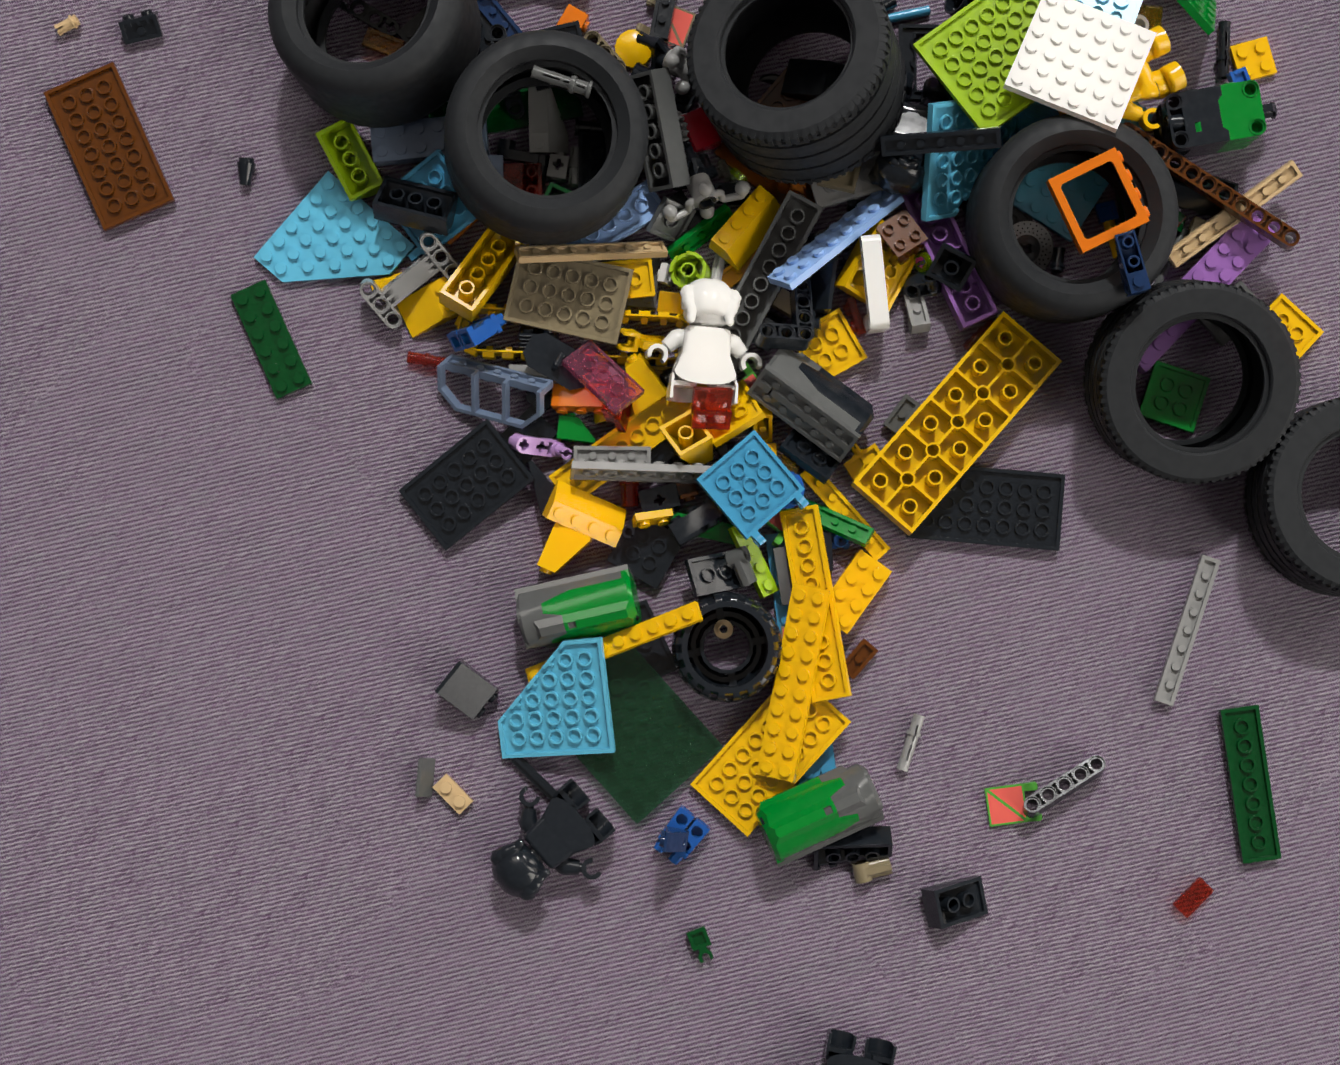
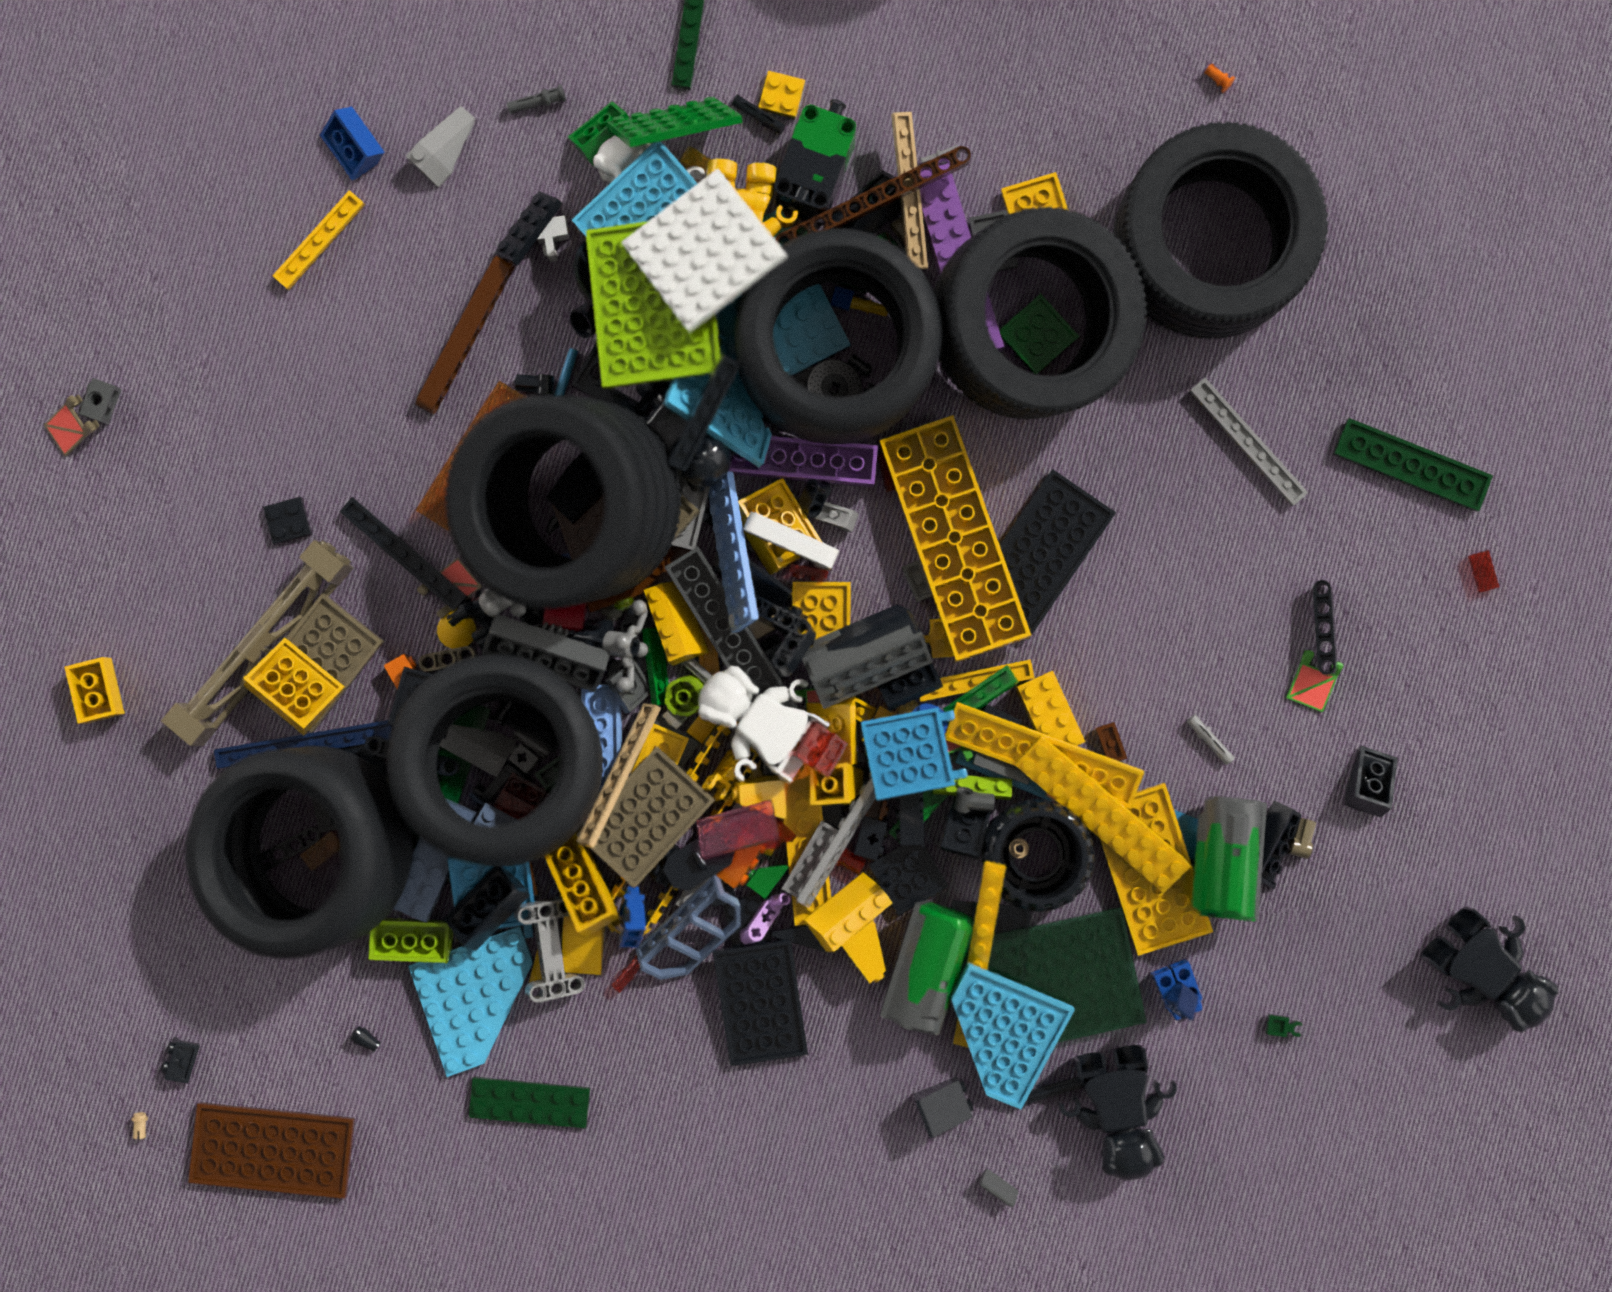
camera: 55 degrees left, 0 degrees up
(453, 794) = (1027, 1170): tan plate -> none
(538, 73) = (437, 739): dark grey pin -> none
(645, 519) = (883, 860): yellow plate -> none
(836, 544) = (999, 703): blue plate -> none
(902, 237) = (764, 492): reddish brown bracket -> none
(922, 261) = (795, 485): clear neon green tile -> none
(951, 267) = (815, 464): black slope -> none
(1054, 186) = (852, 273): orange piece -> none
(1131, 264) = (913, 311): dark blue slope -> none
(1238, 75) = (791, 115): blue plate -> none

